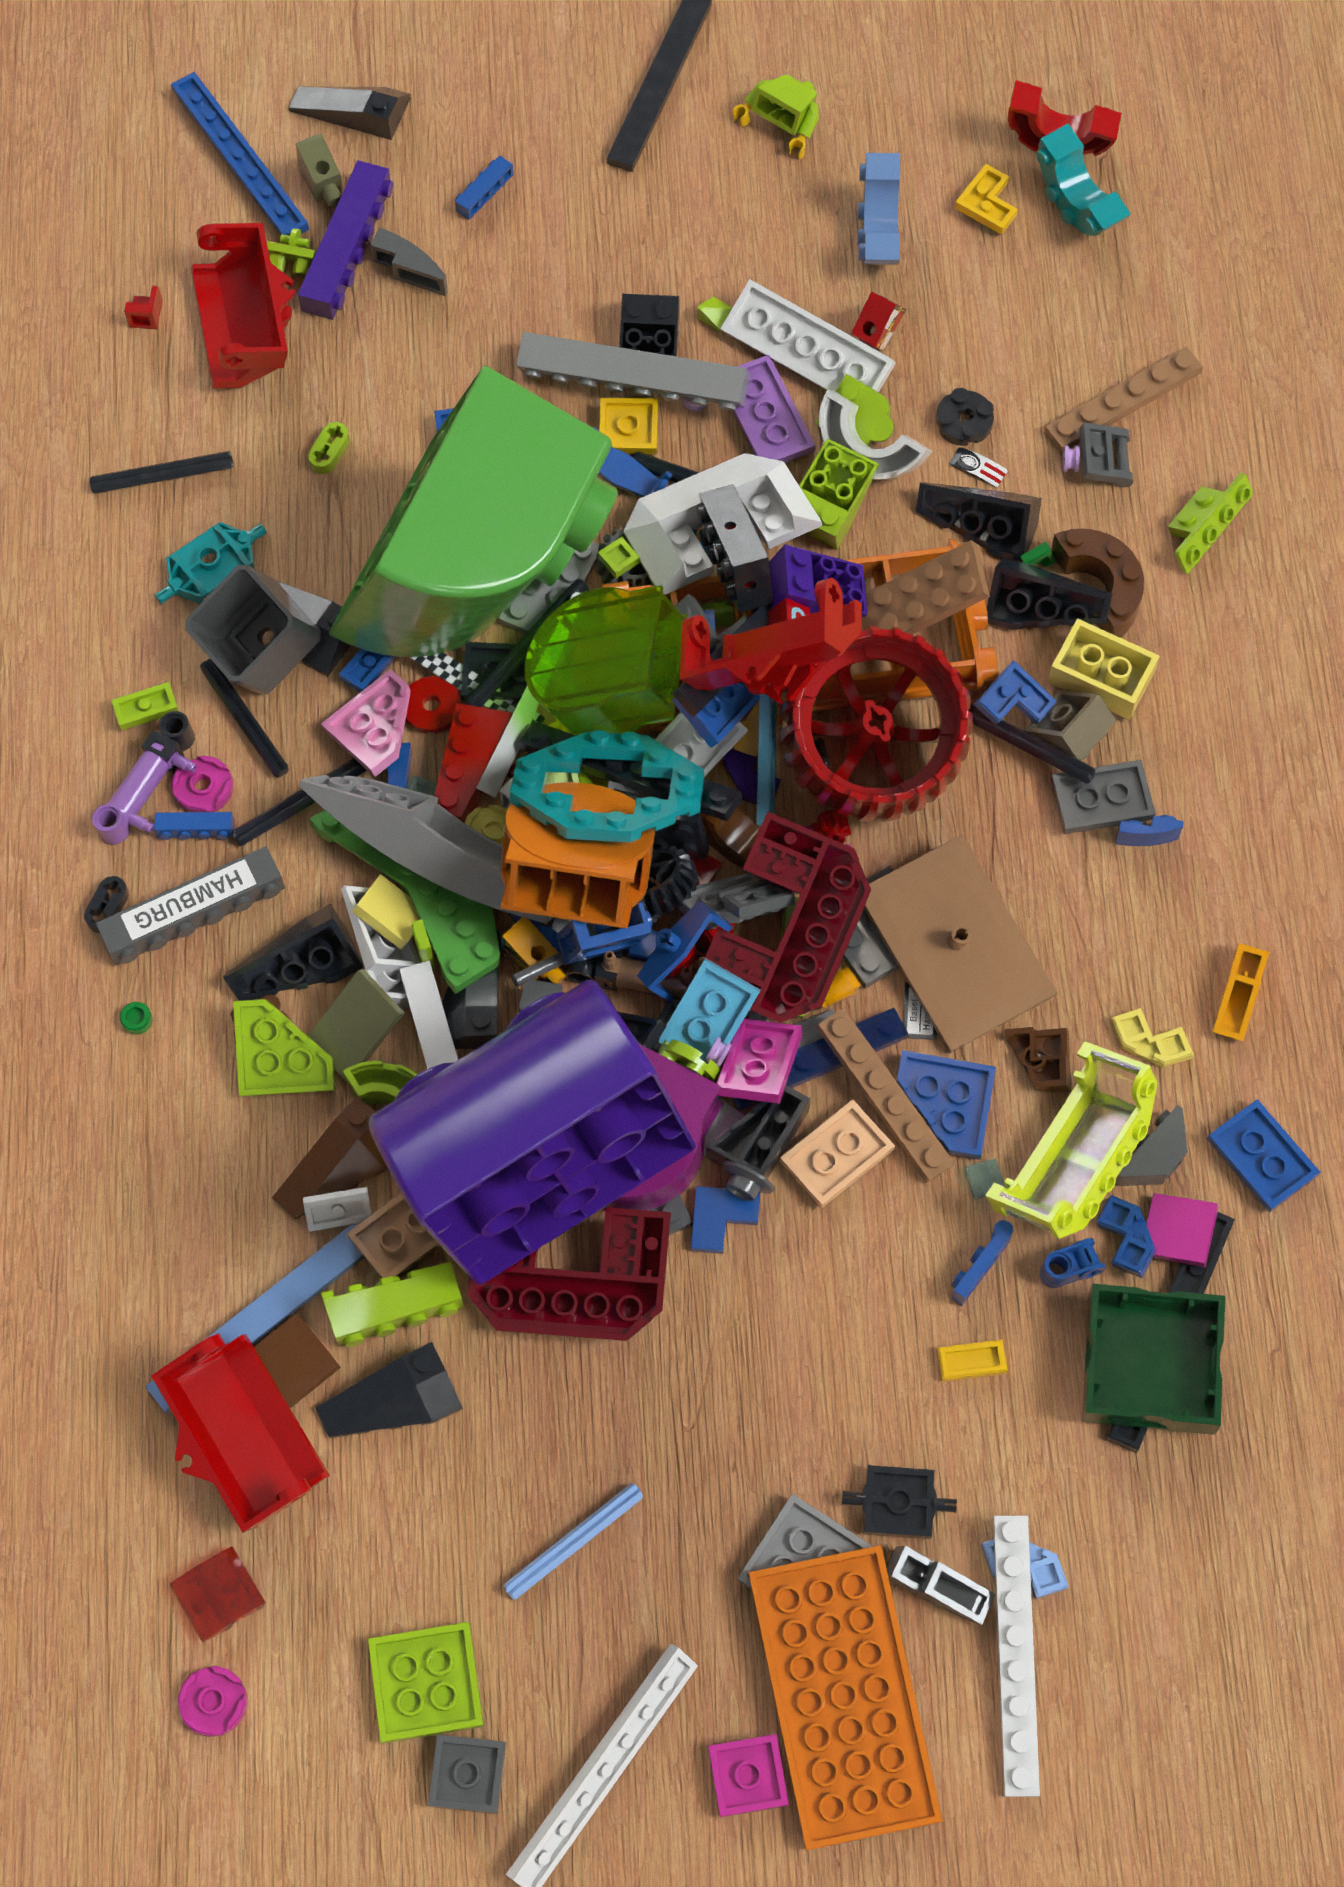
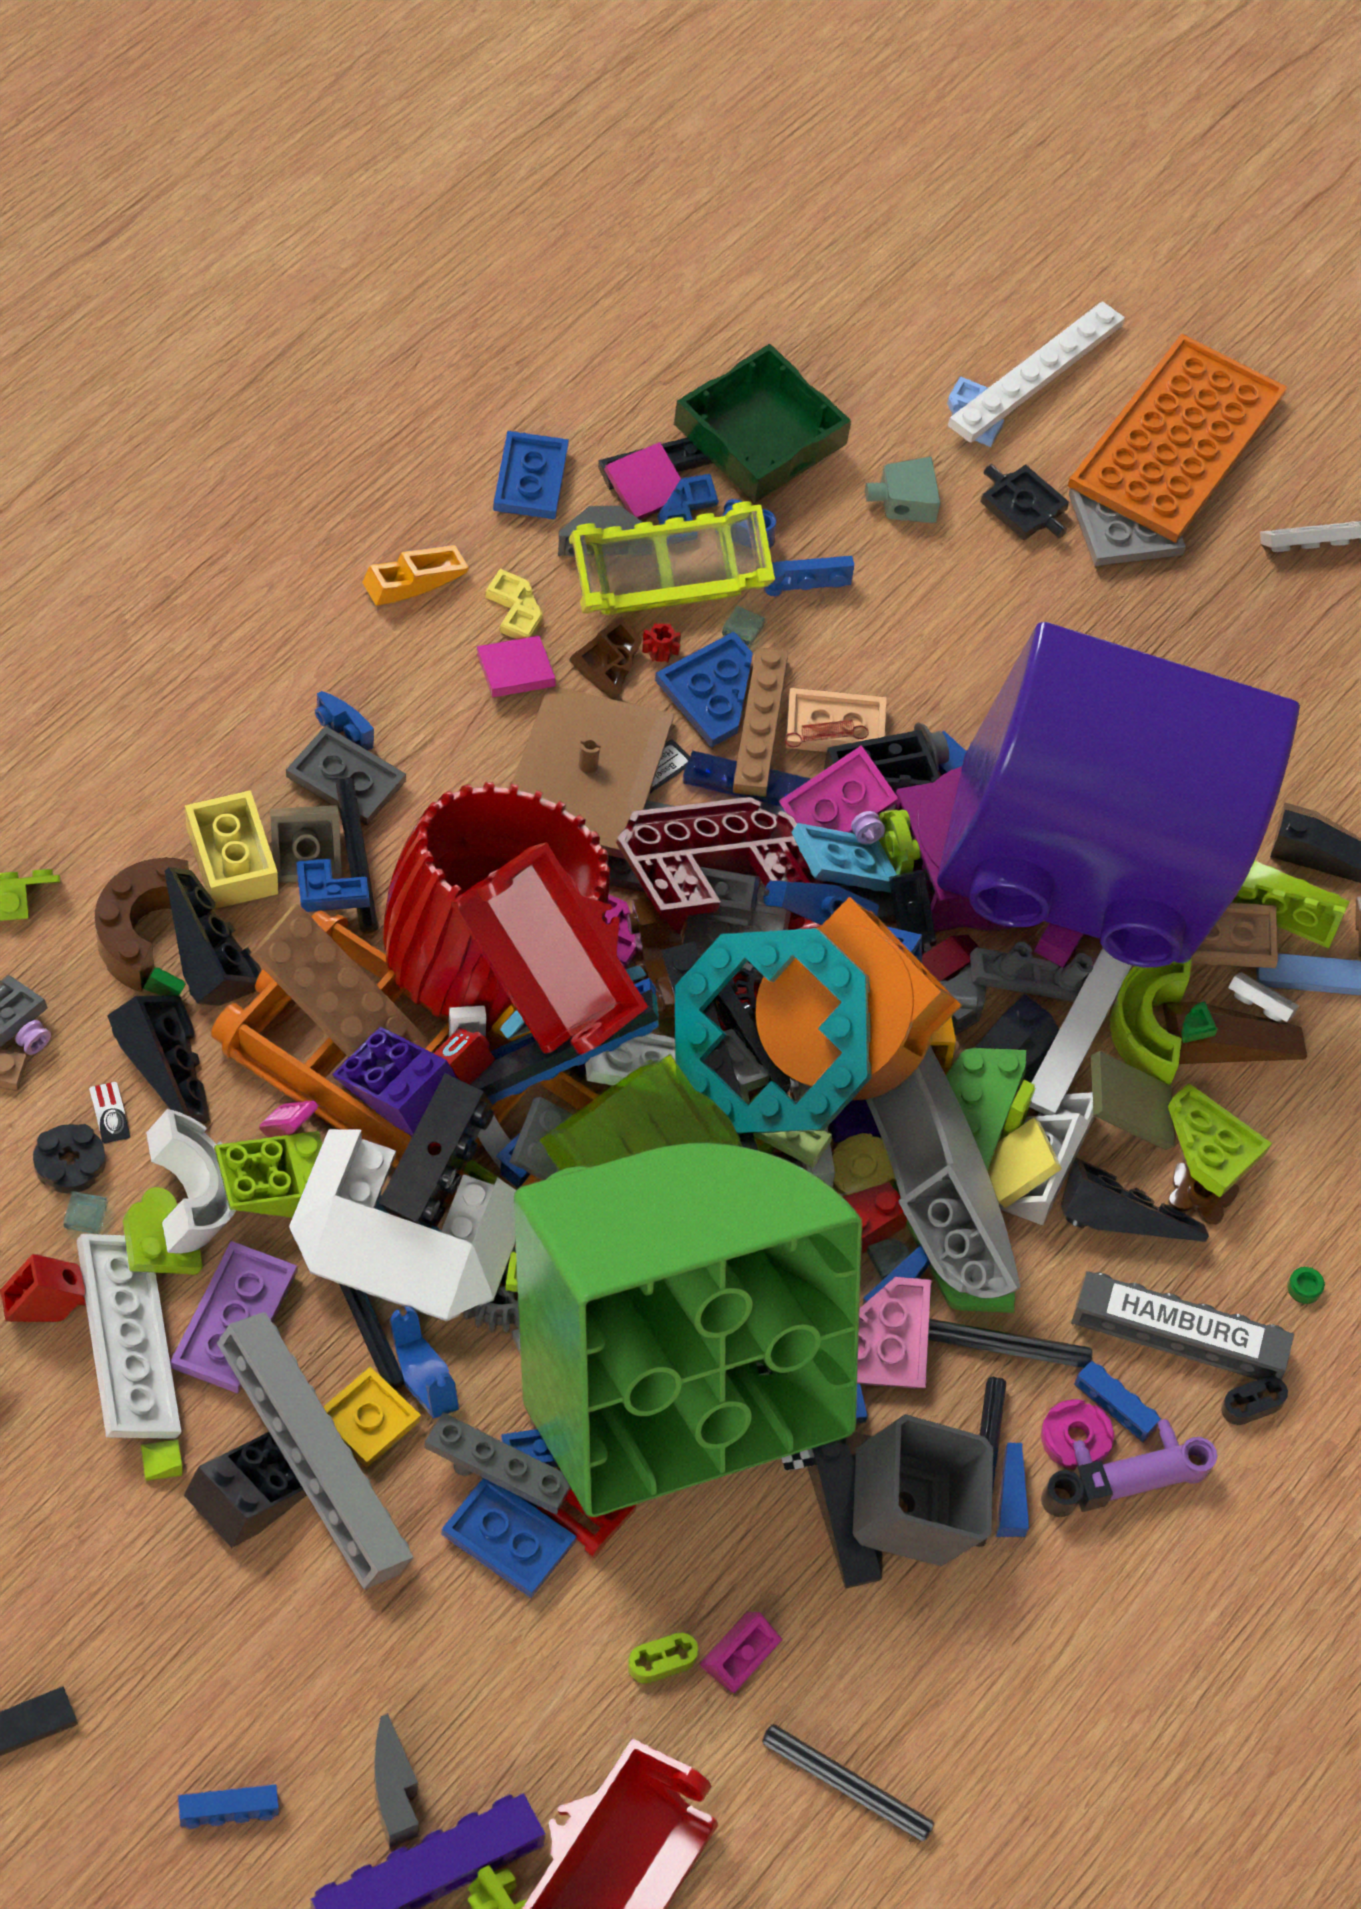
camera: 145 degrees left, 10 degrees down
(144, 706) = (1070, 1548): lime plate -> none
(195, 579) = (856, 1647): teal plate -> none
(203, 703) = (1013, 1501): none -> blue piece
(289, 490) = (741, 1651): none -> dark pink slope
(354, 1111) = (1198, 1024): none -> green tile
(573, 1541) = (1279, 662): light blue axle -> none
(748, 1775) = (1286, 452): dark pink plate -> none
(829, 1130) = (831, 736): none -> red piece
(863, 534) = (287, 1118): none -> dark pink slope
(917, 397) = (85, 1212): none -> clear light blue tile
(939, 1584) = (1048, 442): dark grey slope -> none
(972, 1360) = (880, 537): yellow tile -> none
(992, 1417) = (907, 491): none -> sand green torso
(1024, 1091) = (661, 642): none -> red gear
(1093, 984) = (516, 666): none -> dark pink tile

